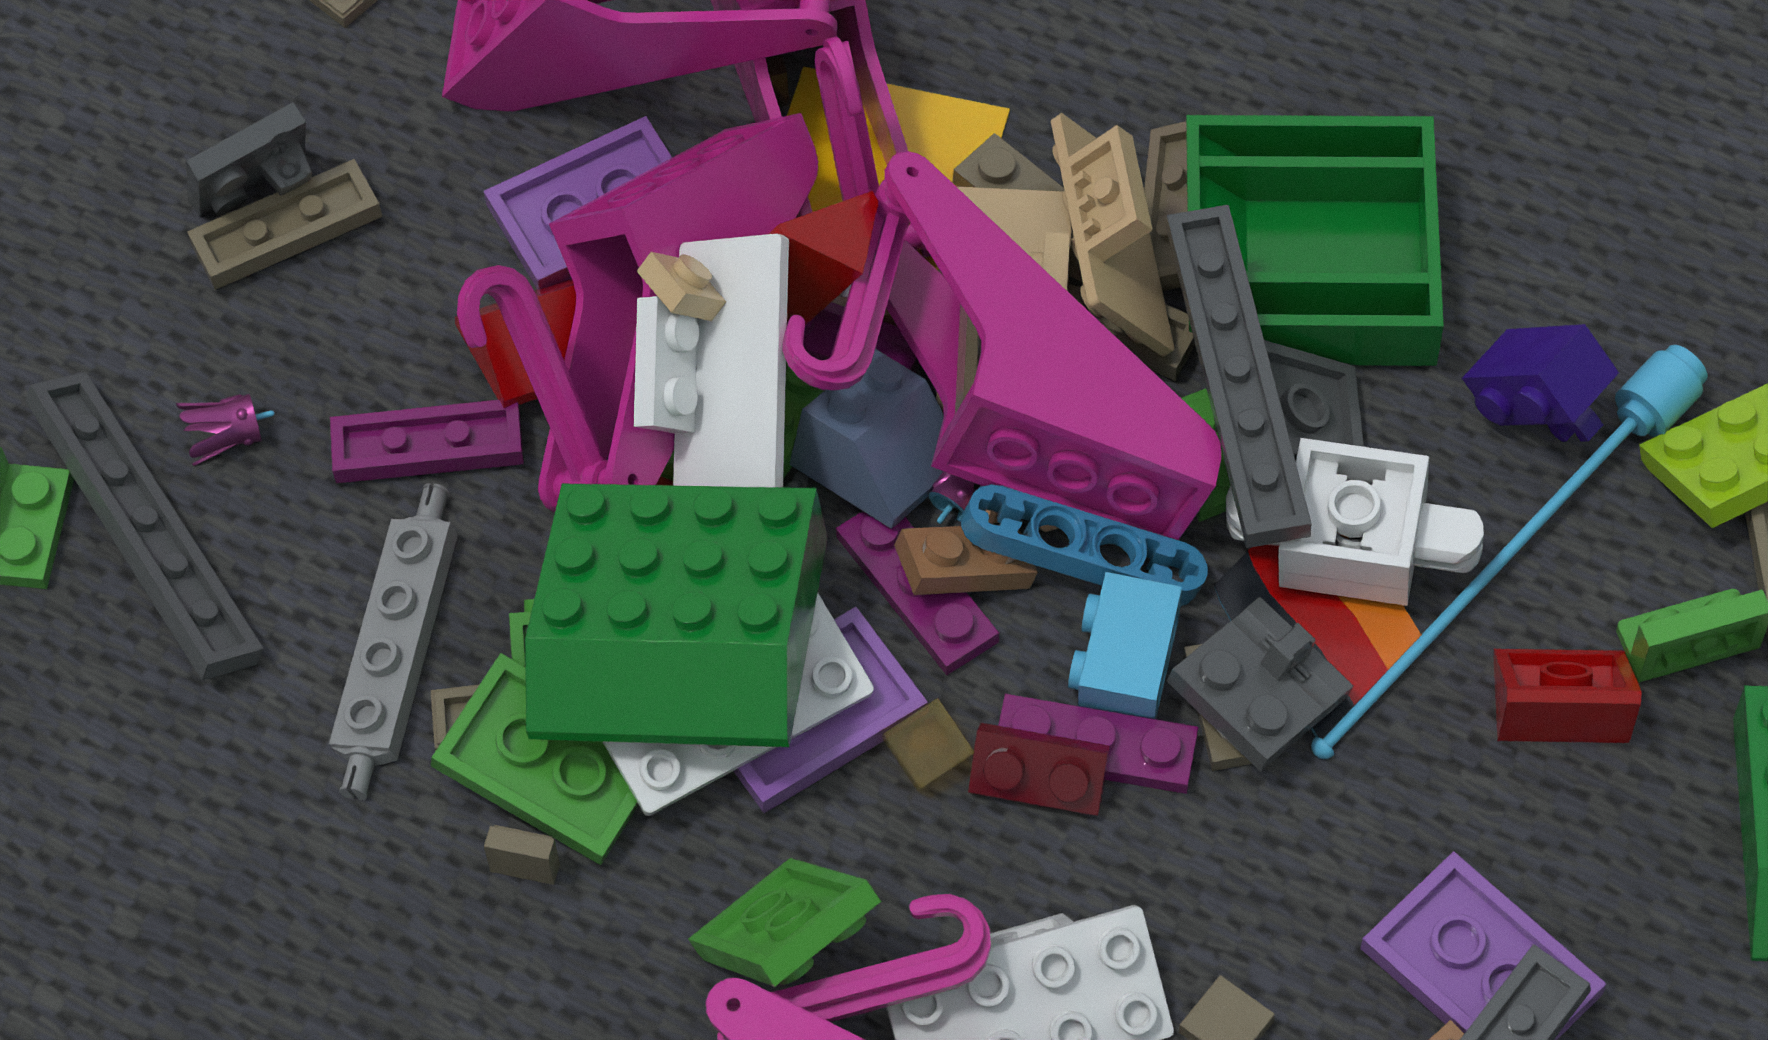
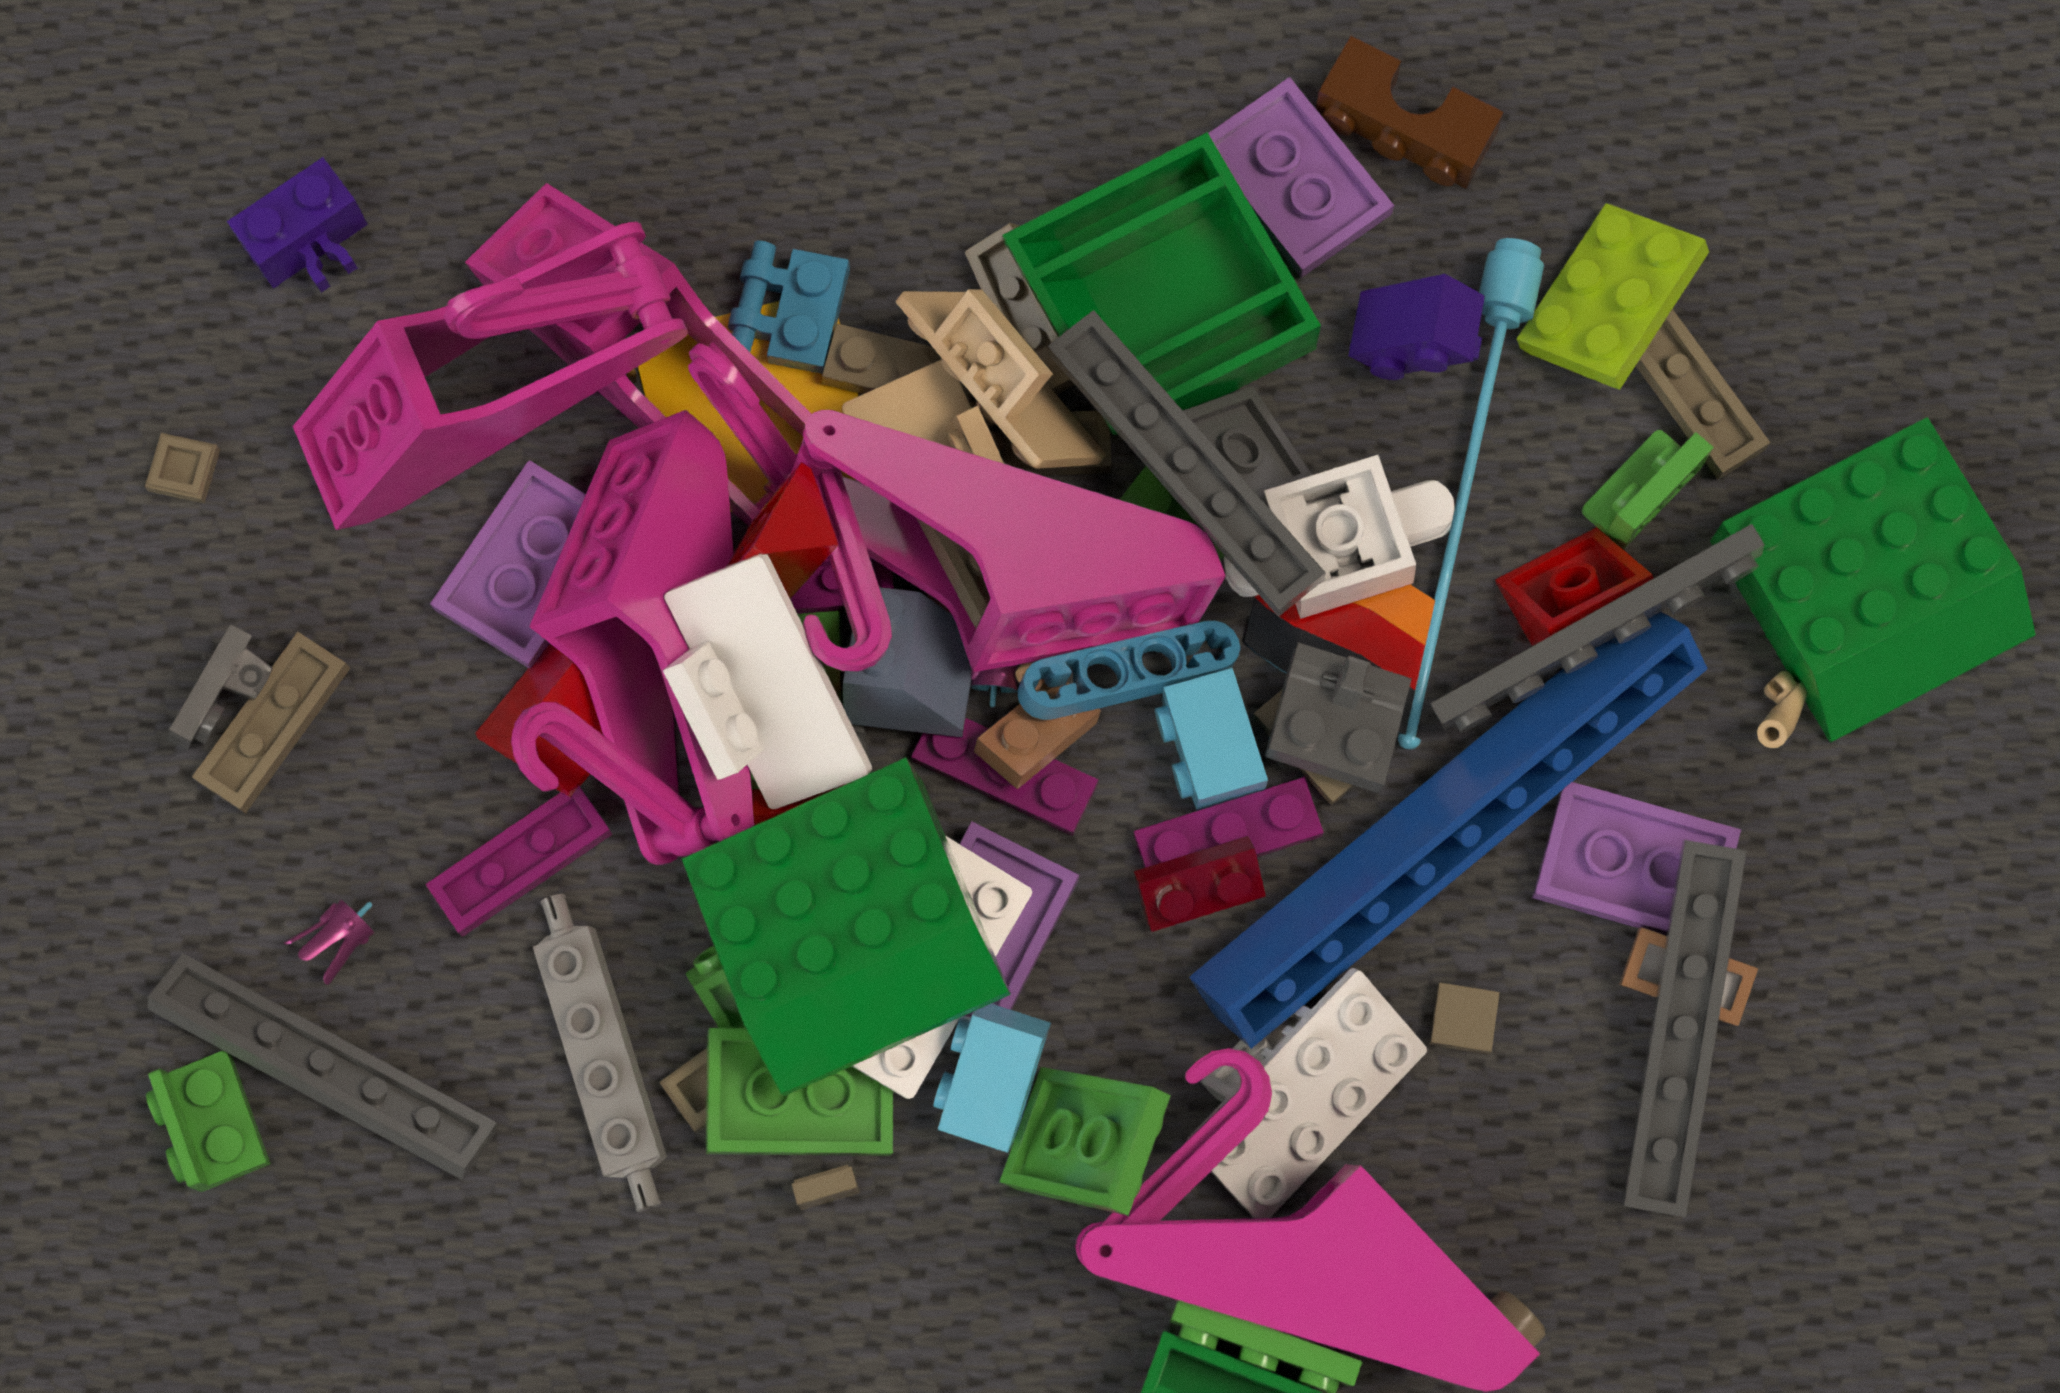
camera: 30 degrees left, 15 degrees up
(682, 285) = (693, 638): tan plate -> none
(735, 829) = (992, 1075): none -> medium azure brick
(927, 744) = (1098, 910): clear yellow plate -> none
(983, 104) = (807, 308): none -> dark azure plate
(1315, 829) = (1443, 829): none -> blue brick
(1505, 210) = (1299, 177): none -> medium lavender plate
(1565, 716) = (1621, 619): none -> dark grey plate
(1668, 241) = (1443, 142): none -> reddish brown arch
(1711, 909) = (1785, 714): none -> tan arm

